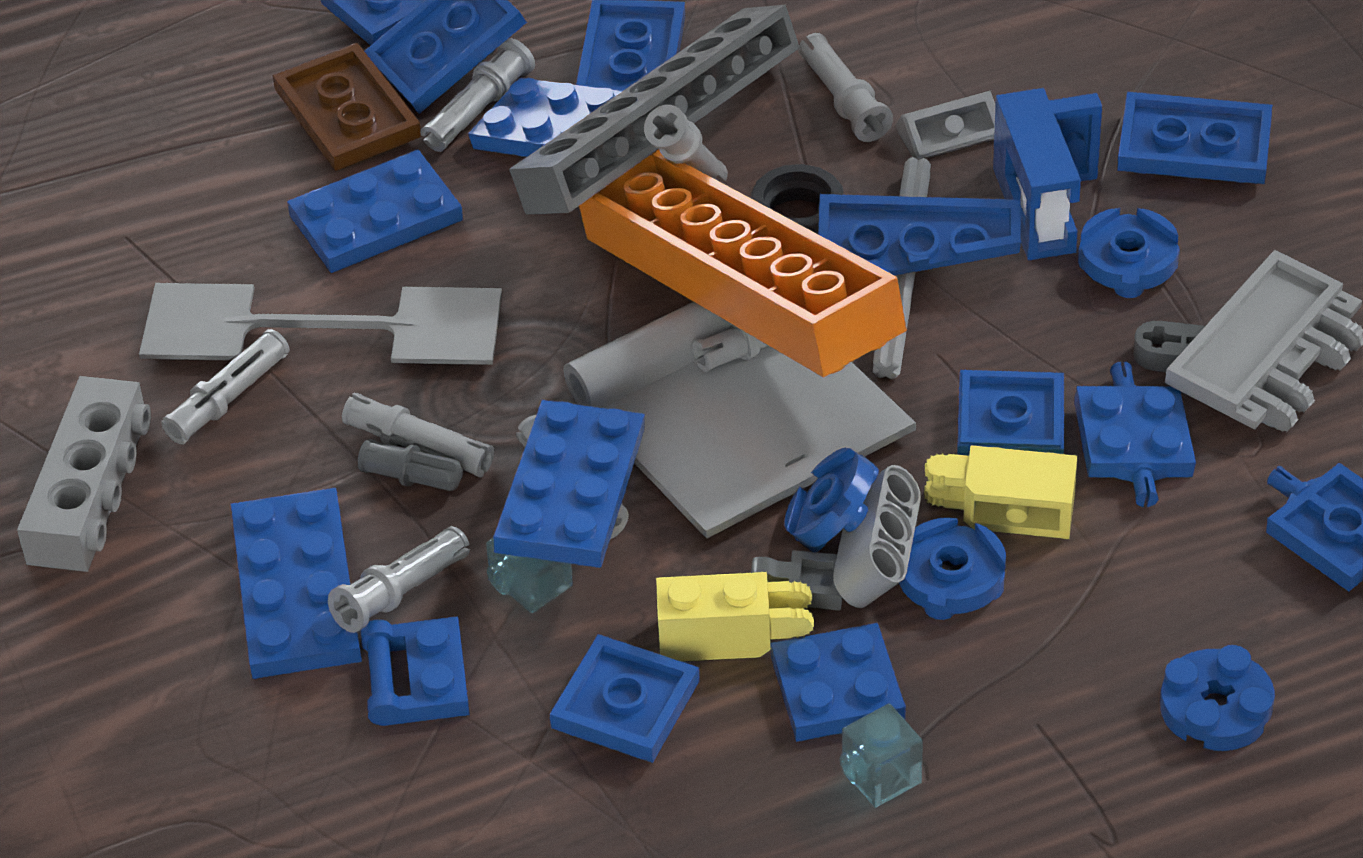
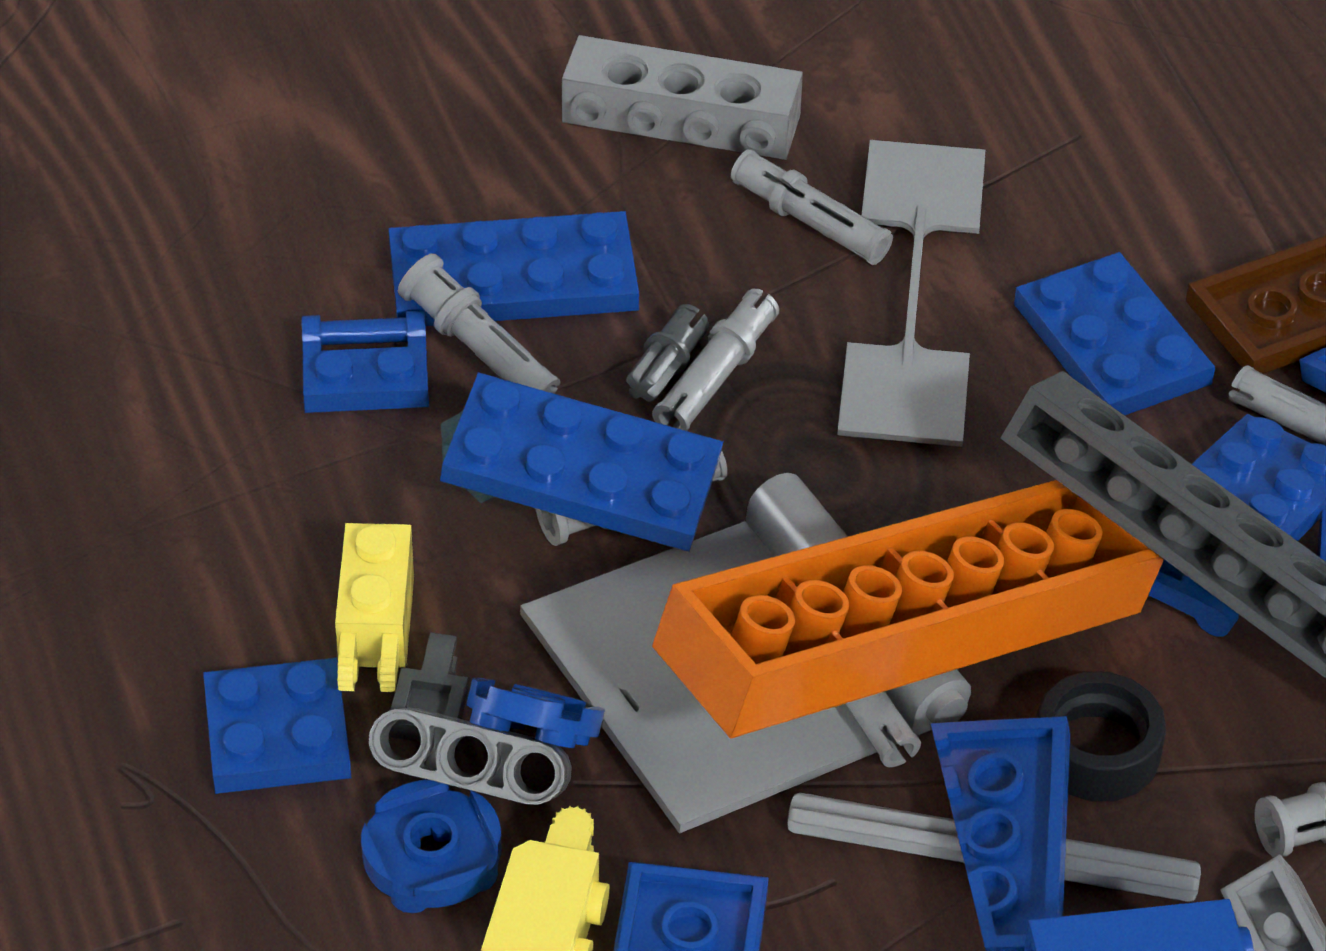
camera: 90 degrees right, 0 degrees up
(624, 698) = (279, 525): blue plate -> none
(681, 141) = (1137, 555): light grey pin -> none
(882, 755) = (132, 738): clear light blue brick -> none

